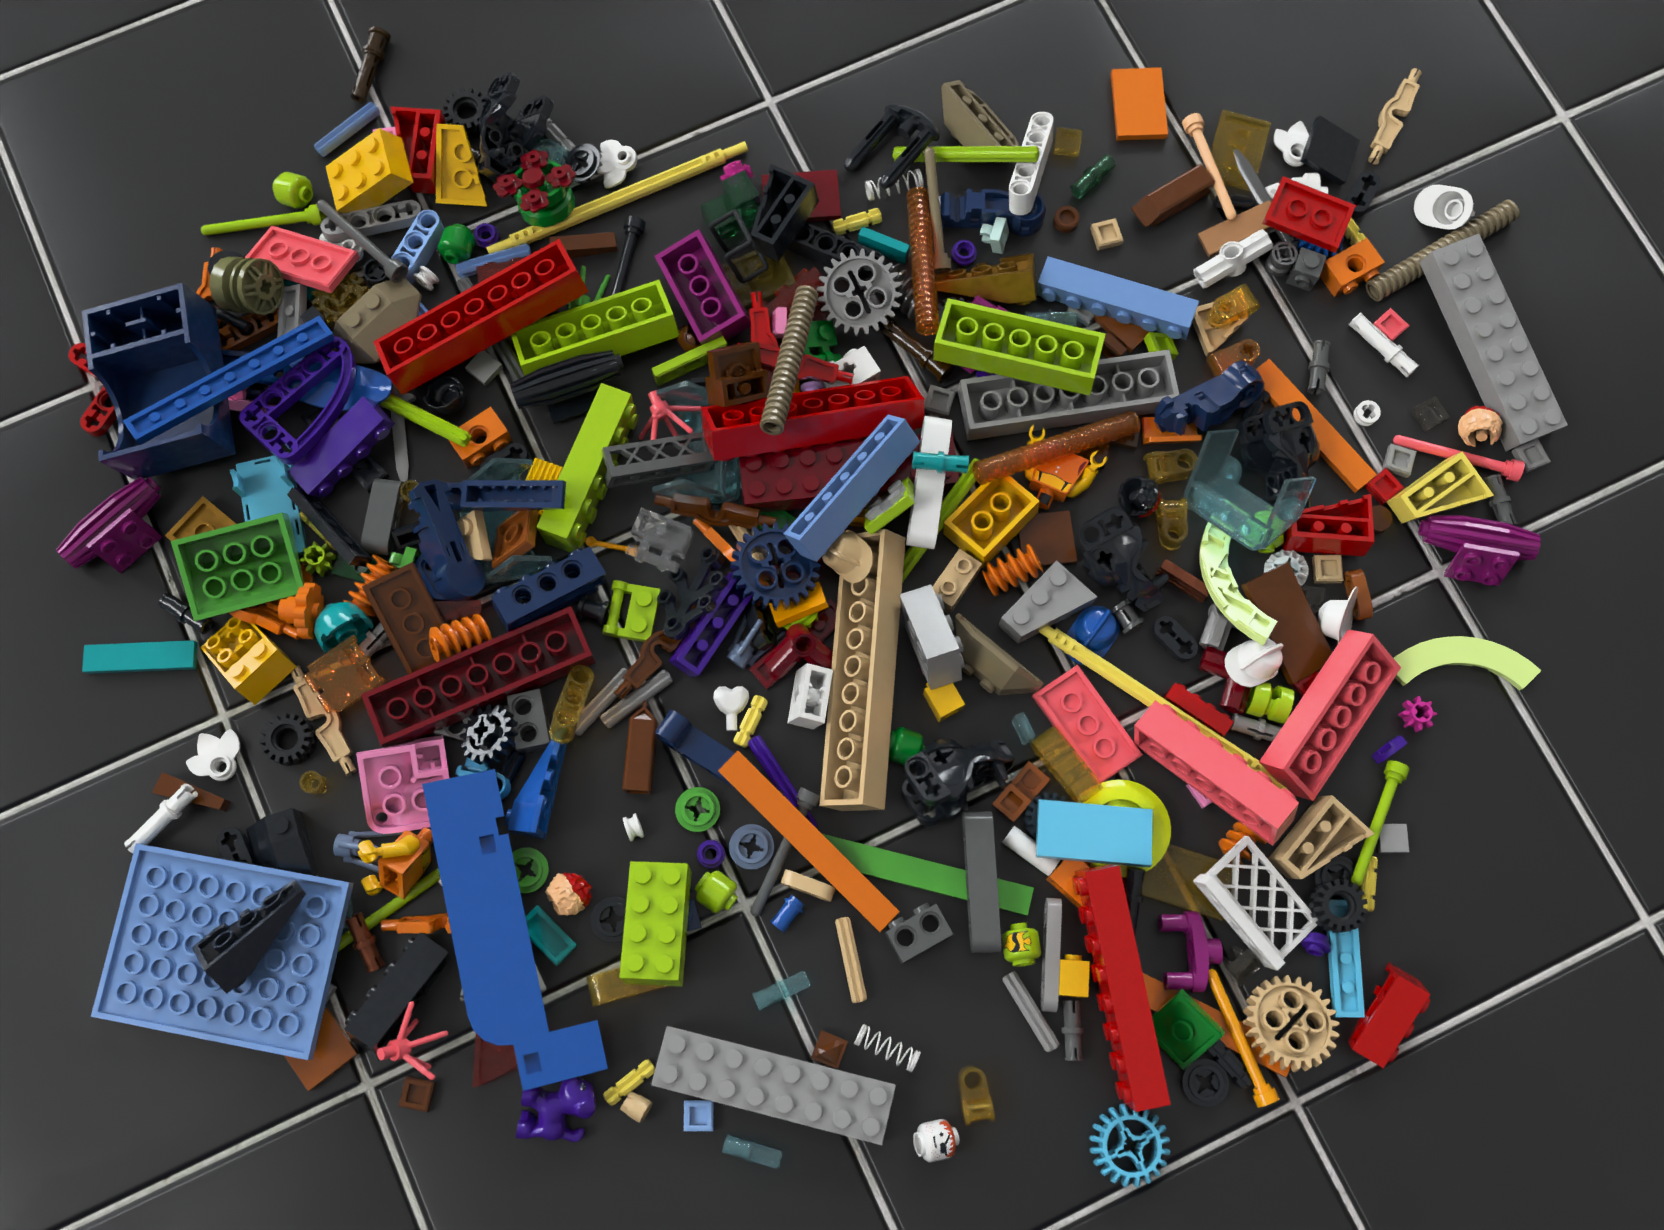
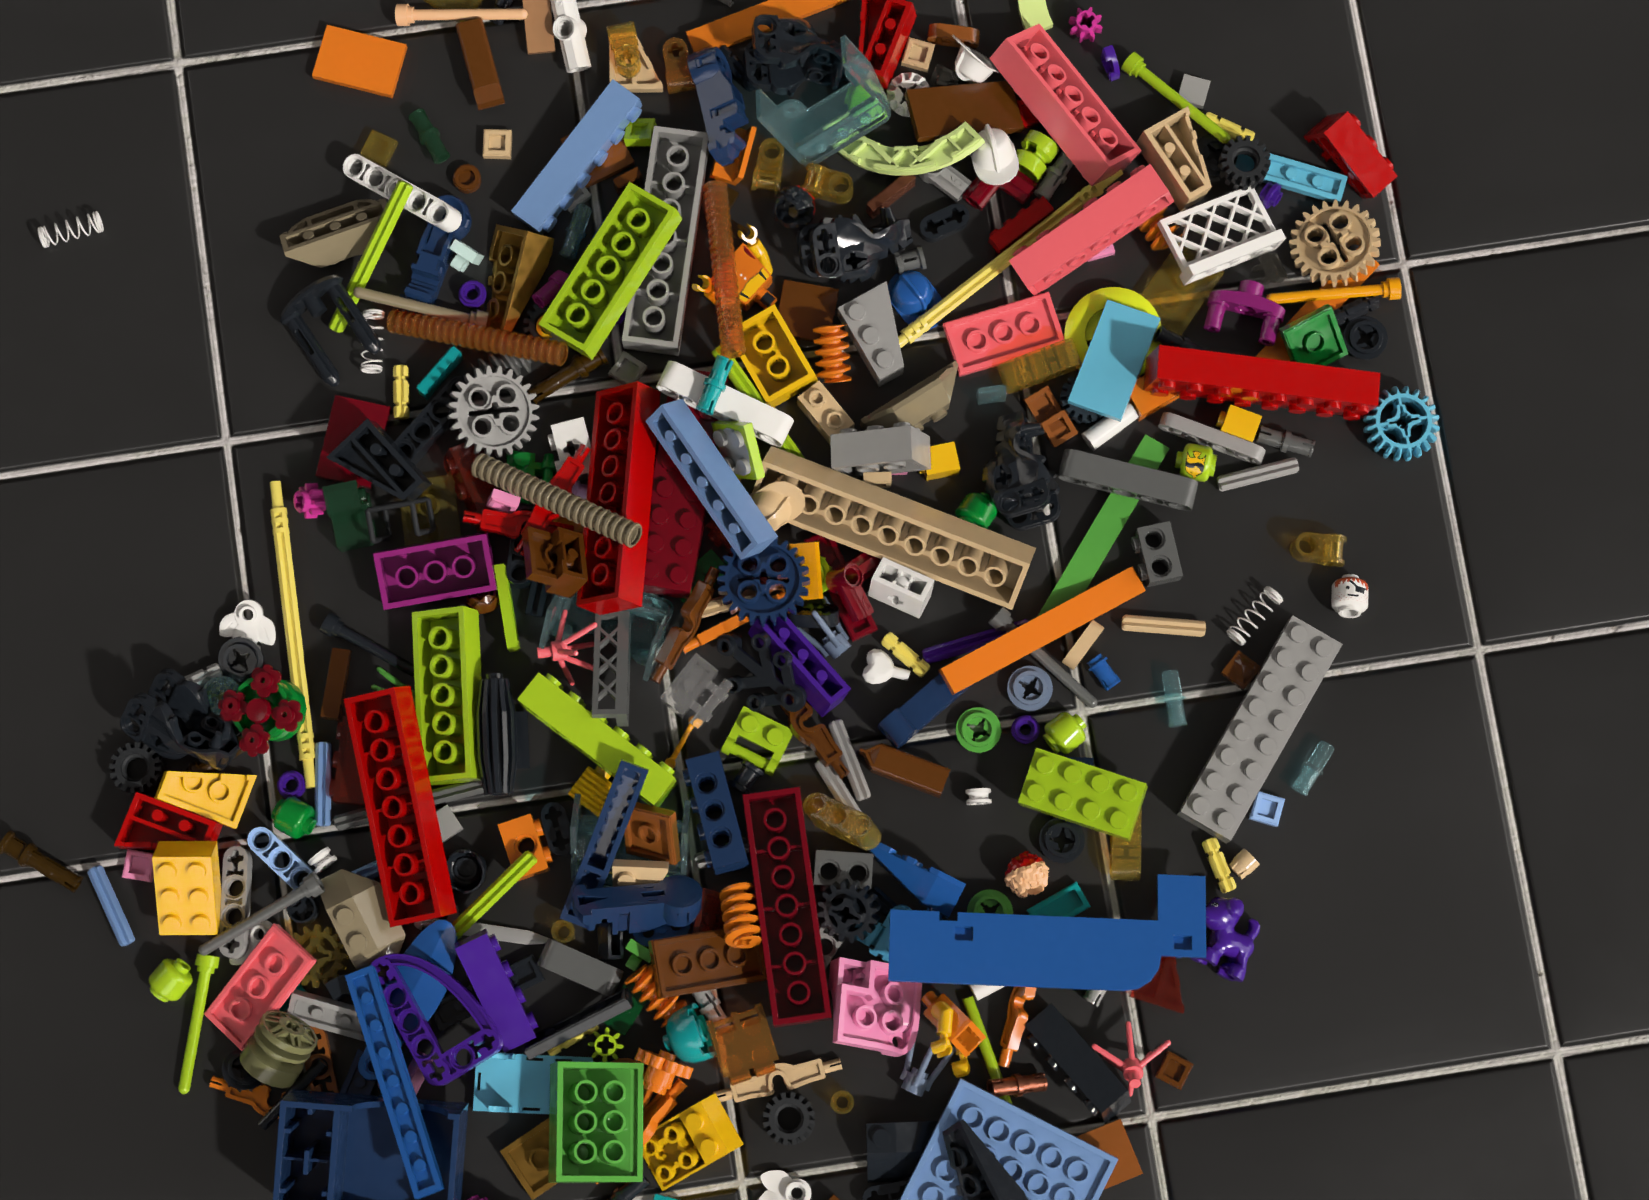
camera: 75 degrees left, 5 degrees up
(907, 647) = (878, 479): none -> tan tile

